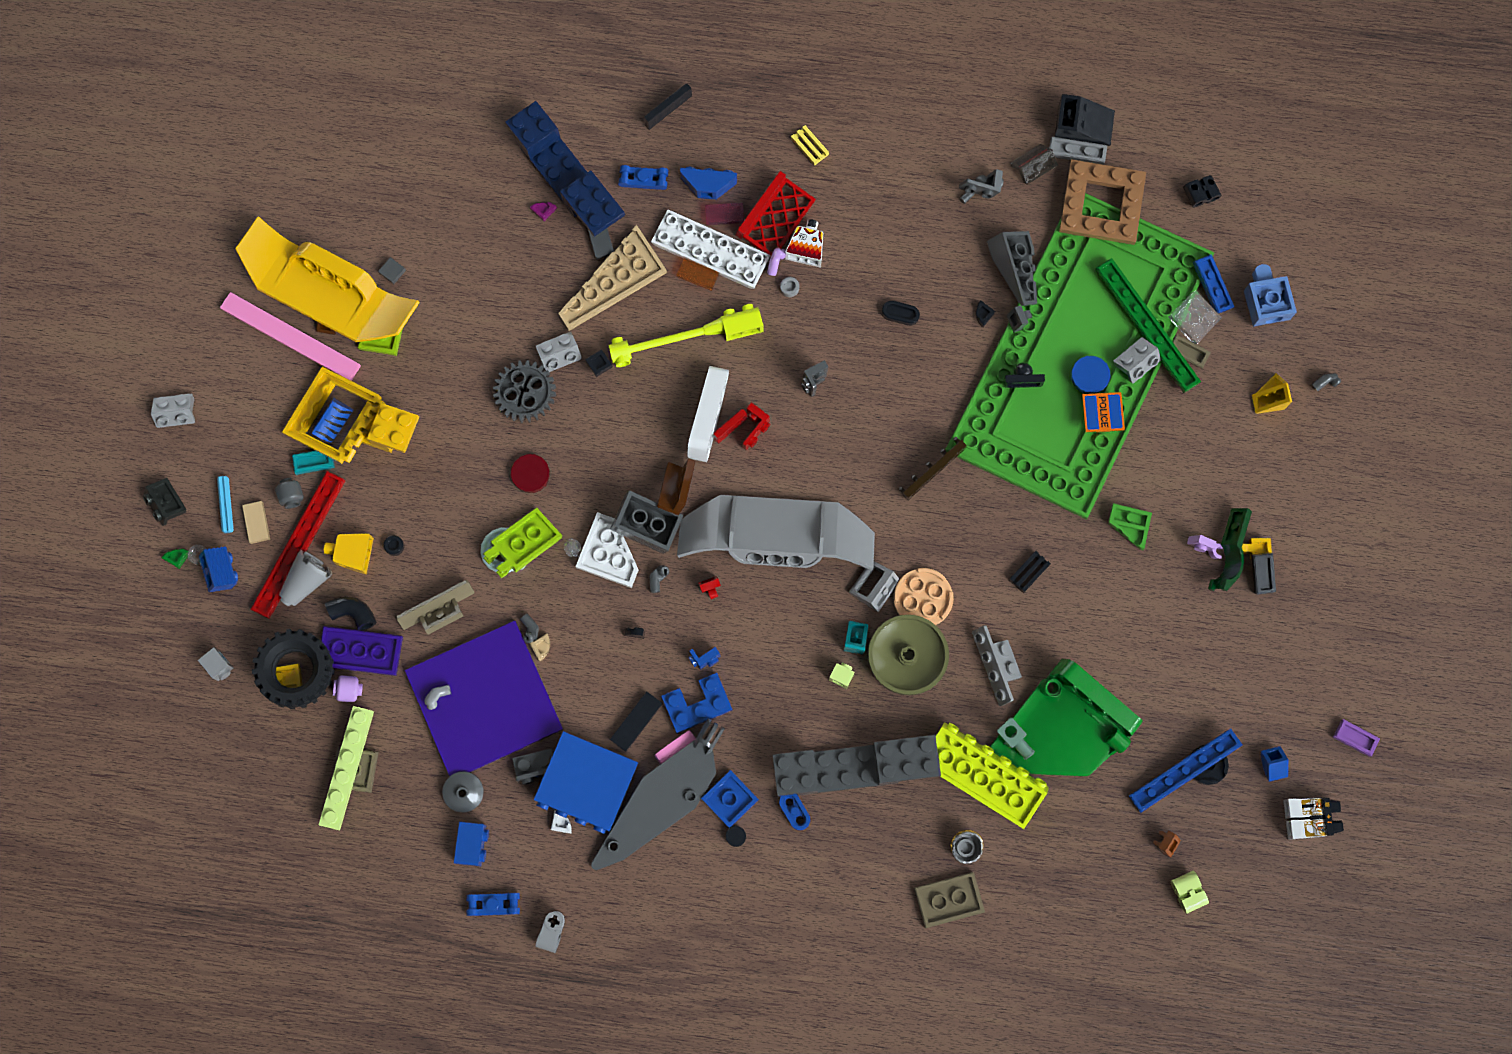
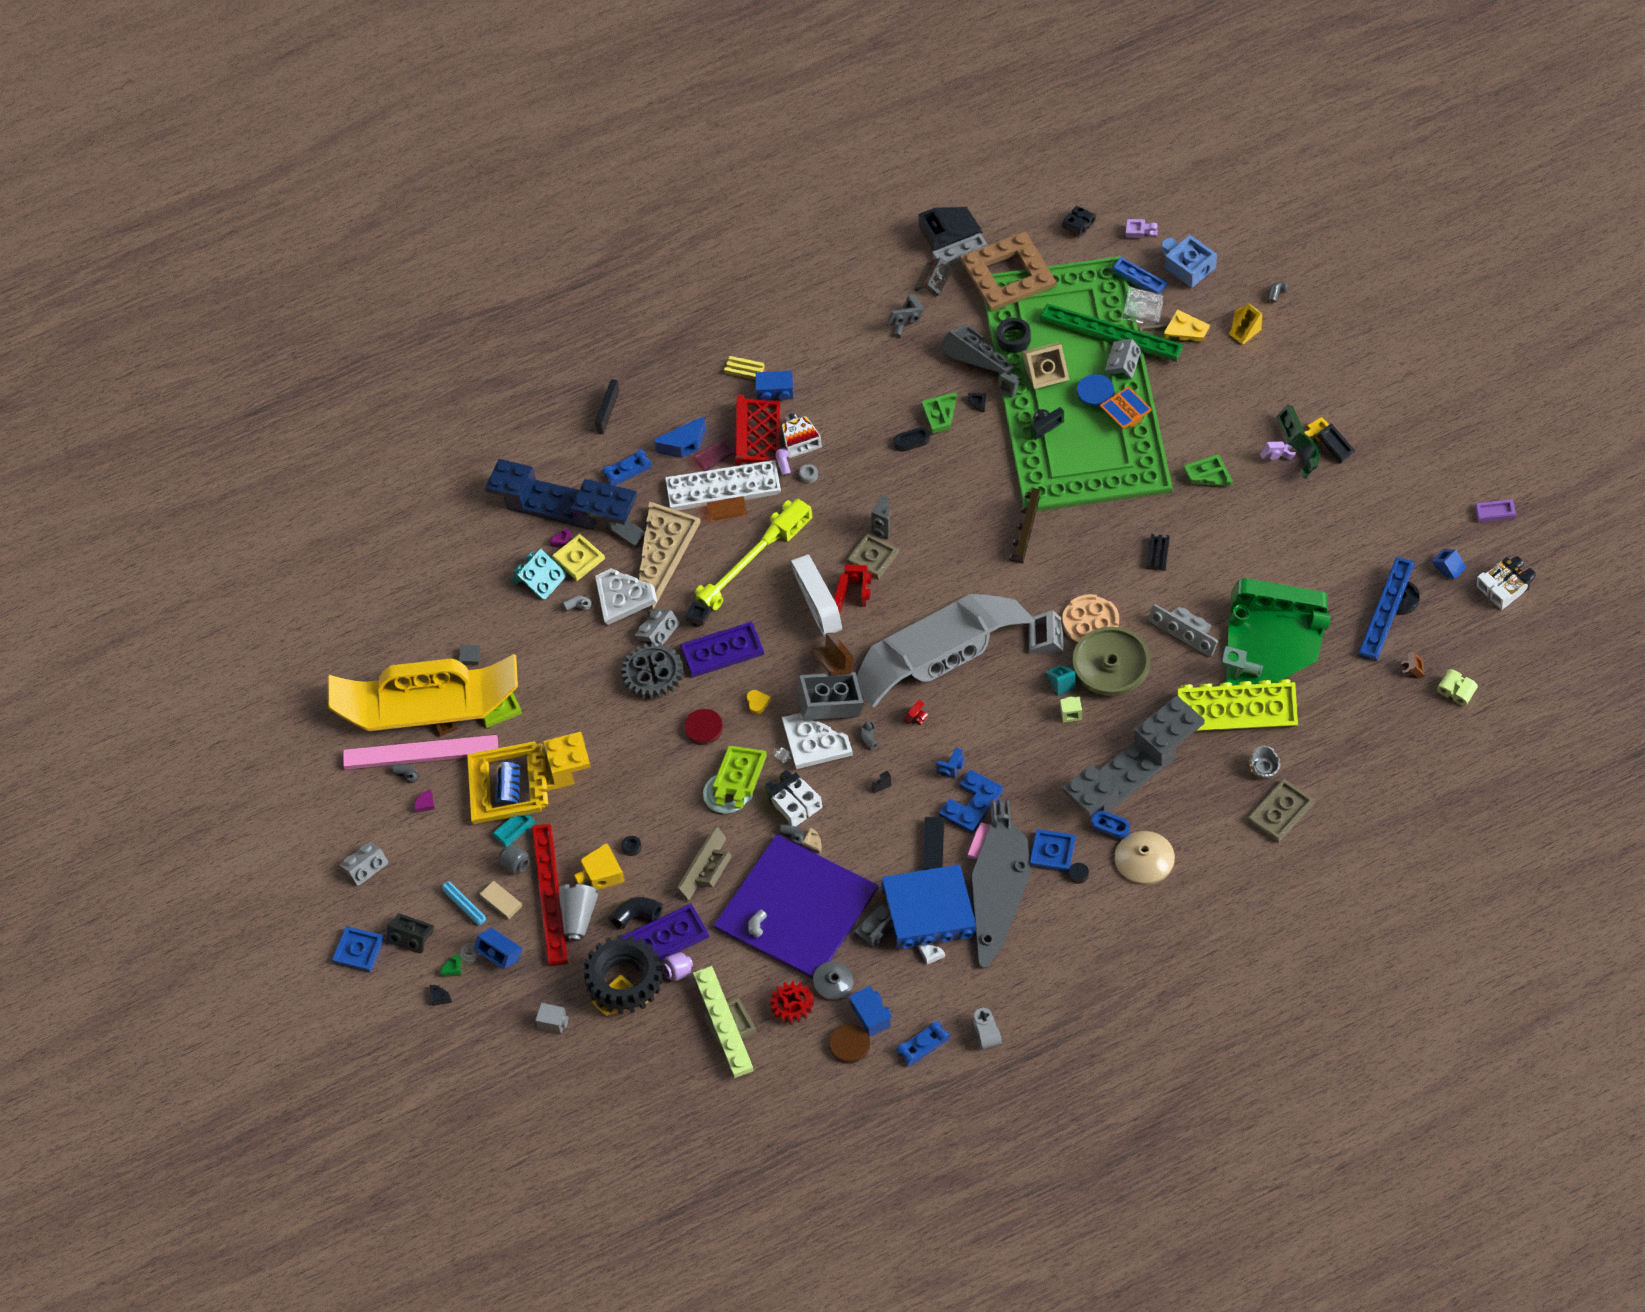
camera: 30 degrees left, 20 degrees down
(115, 487) = (358, 949): none -> blue tile
(148, 575) = (439, 995): none -> black tile
(261, 386) = (425, 802): none -> magenta tile
(267, 348) = (407, 770): none -> dark grey arm
(406, 794) = (792, 1003): none -> red gear
(434, 860) = (849, 1043): none -> reddish brown tile
(498, 233) = (539, 574): none -> bracket
(513, 280) = (577, 601): none -> light grey arm
(542, 238) = (578, 557): none -> light yellow plate
(550, 301) = (622, 595): none -> white plate
(553, 589) = (793, 798): none -> white hips
(590, 480) = (757, 701): none -> yellow tile
(597, 409) = (722, 649): none -> dark purple tile
(785, 405) = (874, 553): none -> dark tan tile
(801, 876) = (1148, 866): none -> tan dish
(820, 181) = (774, 385): none -> blue brick
(943, 303) = (940, 411): none -> bright green wing
(1062, 257) = (1013, 324): none -> black tyre
(1065, 320) = (1045, 365): none -> tan slope
(1217, 364) = (1186, 327): none -> yellow wing
(1248, 234) = (1137, 228): none -> lavender plate

